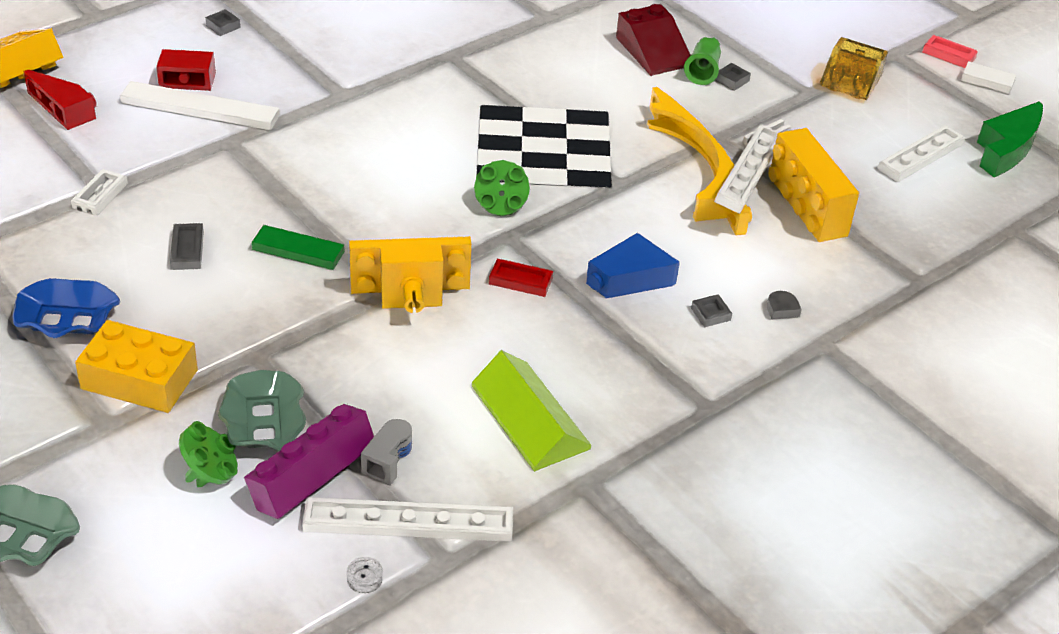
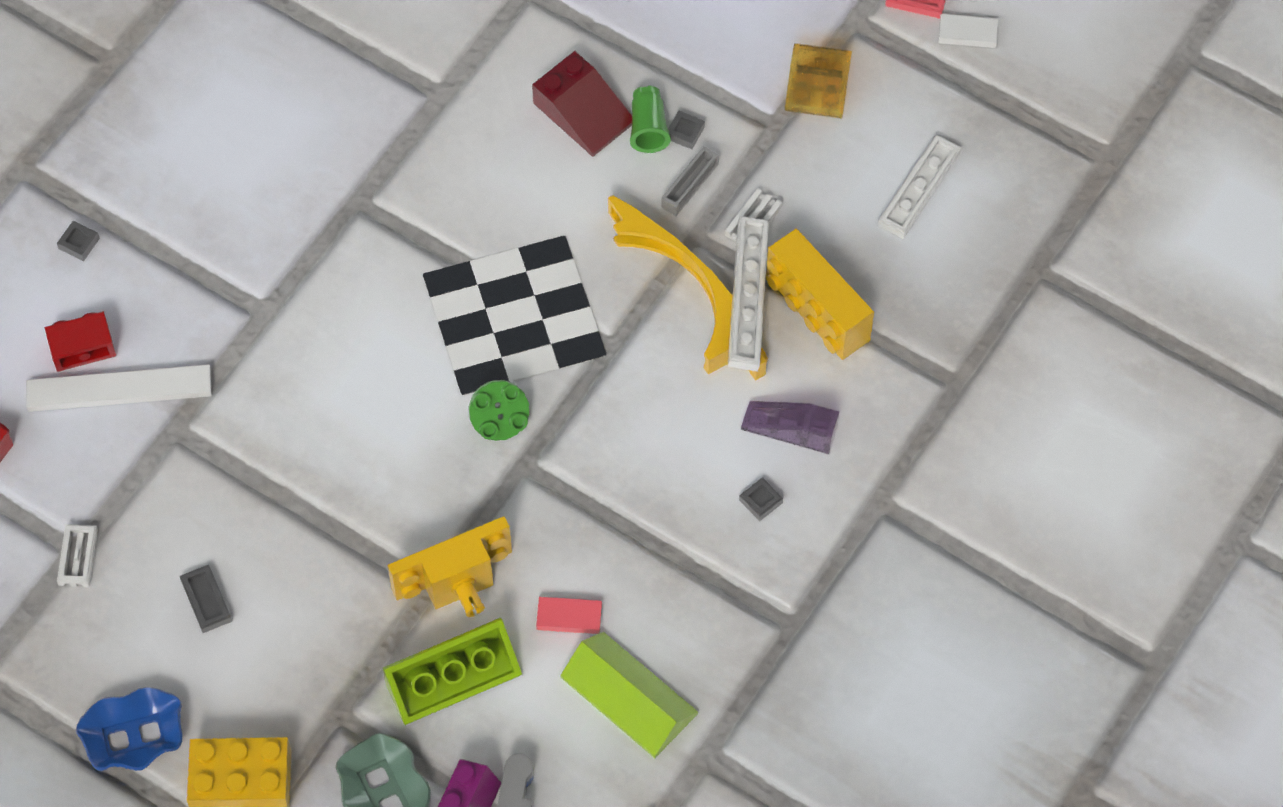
camera: 15 degrees left, 20 degrees up
(298, 247) = (319, 560): green tile -> none
(372, 344) = (451, 671): none -> lime slope
(493, 338) = (569, 615): none -> coral tile
(521, 277) = (558, 521): red tile -> none
(632, 268) = (667, 474): blue slope -> none
(725, 101) = (689, 181): none -> light grey piece
(764, 266) = (793, 423): none -> clear purple slope
(783, 305) = (829, 467): flat silver tile -> none
(1009, 138) = (1009, 133): green slope -> none

